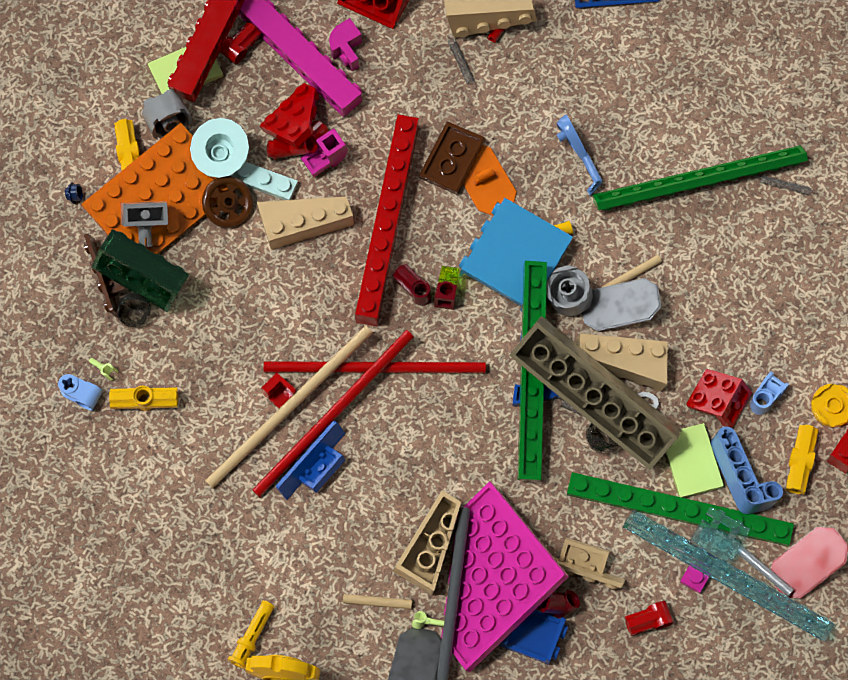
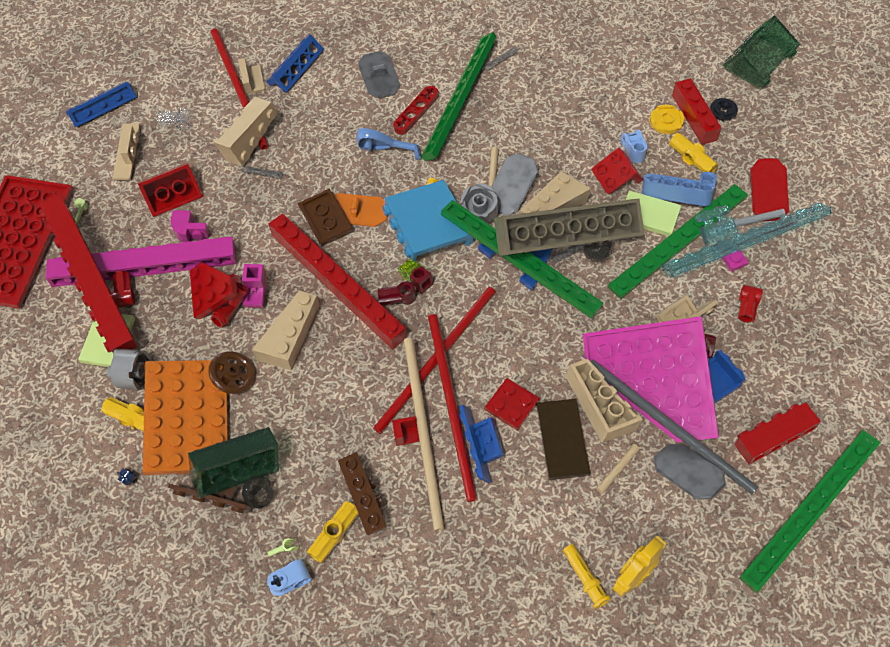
camera: 55 degrees left, 10 degrees down
(144, 216) = (195, 430): light grey brick -> none
(193, 398) = (363, 493): none -> reddish brown bracket
(219, 148) = (189, 346): light aqua piece -> none
(267, 181) = (237, 339): light aqua plate -> none
(372, 533) = (562, 439): none -> dark brown tile
(375, 466) = (511, 404): none -> red plate
(423, 619) = (655, 444): yellowish green hand -> none
(648, 144) = (414, 109): none -> red beam
(669, 79) = (379, 74): none -> flat silver shield

